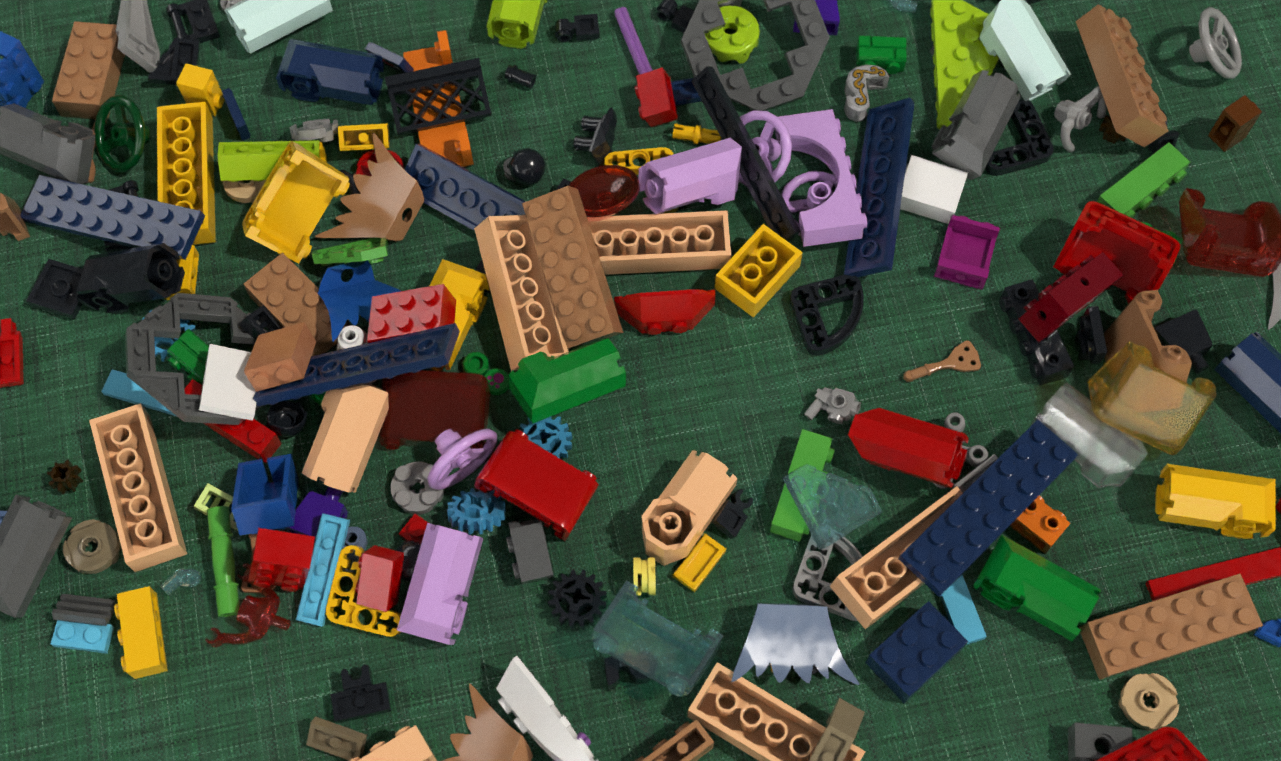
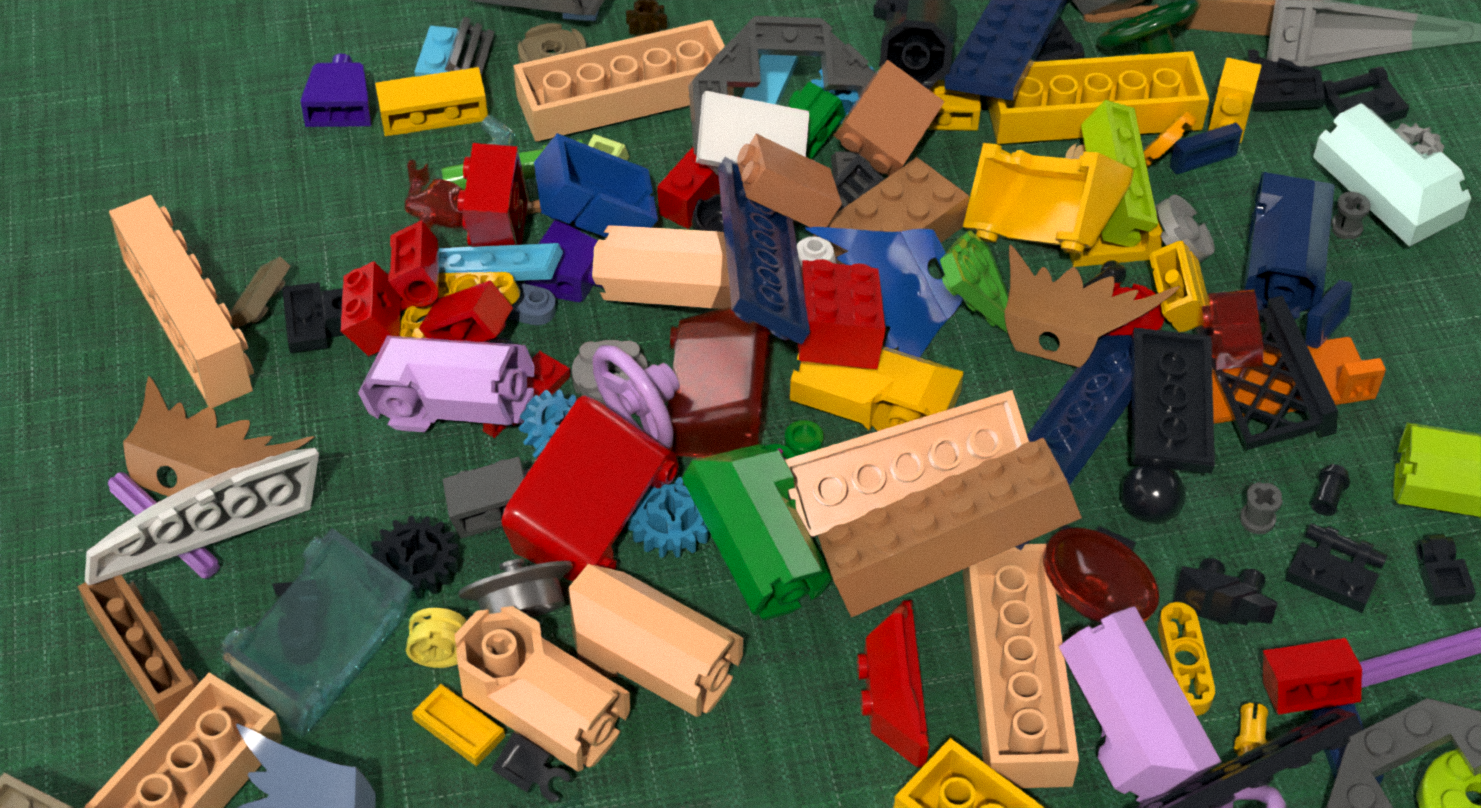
camera: 90 degrees right, 15 degrees down
(125, 706) = (336, 95): none -> dark purple torso
(212, 297) = (888, 119): none -> nougat brick
(230, 128) = (1168, 137): none -> light orange tile
(304, 33) = (1350, 215): none -> dark grey bush
(333, 616) = (414, 265): none -> red piece
(363, 649) = (369, 308): none -> red brick
(410, 106) = (1234, 329): none -> clear red brick
(470, 142) = (1172, 400): none -> black tile
(536, 112) = (1262, 503): none -> dark grey bush
(579, 86) = (1332, 576): none -> black plate
(613, 524) = (529, 588): none -> flat silver wheel
(646, 444) = (651, 639): none -> light nougat brick

